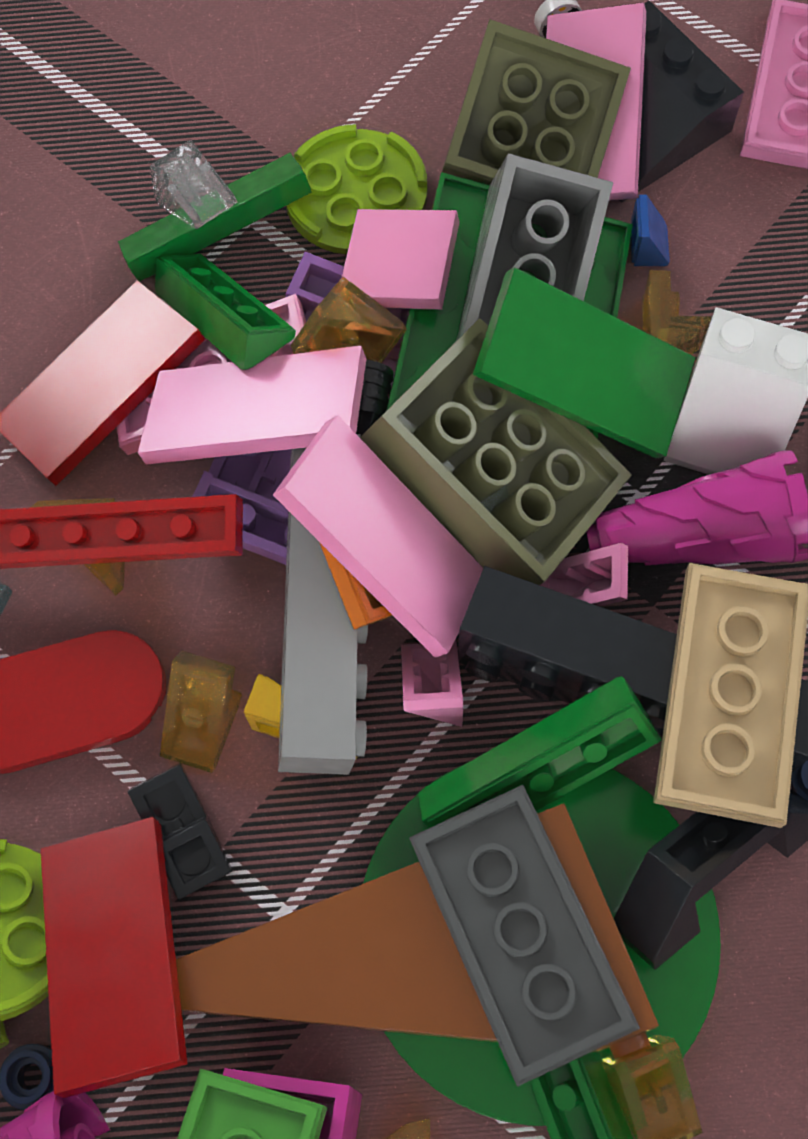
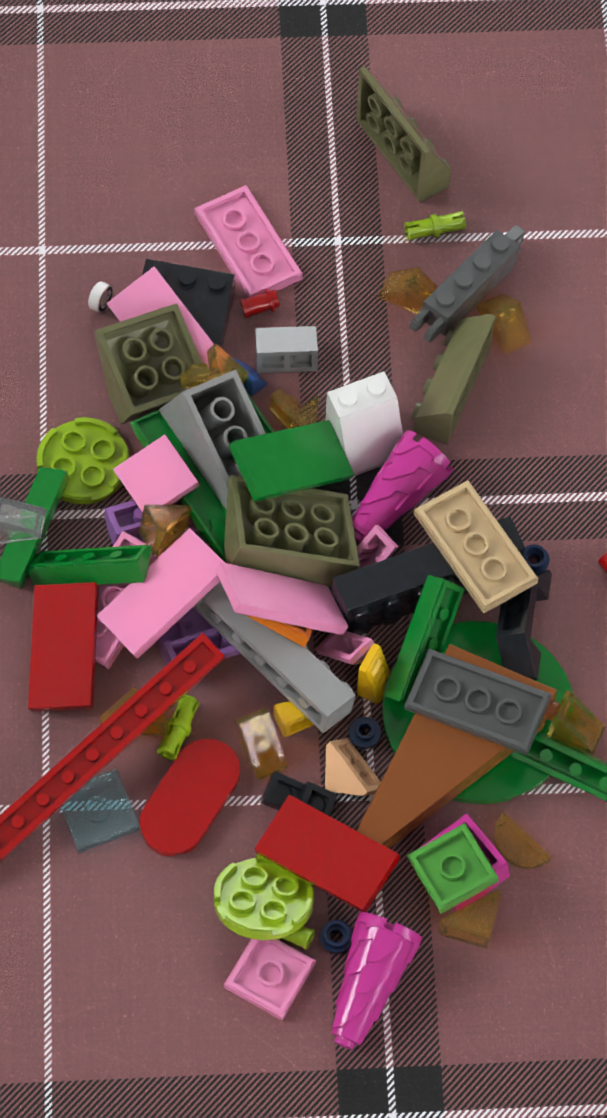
camera: 50 degrees left, 5 degrees down
(128, 598) = (178, 727): none -> lime pin
(280, 853) = (347, 770): none -> light nougat slope
(350, 836) = (360, 740): none -> dark blue plate
(429, 747) = (373, 675): none -> yellow slope
(624, 202) = (219, 364): none -> clear yellow slope
(729, 236) = (286, 349): none -> light grey hinge
(749, 160) = (260, 303): none -> red pin

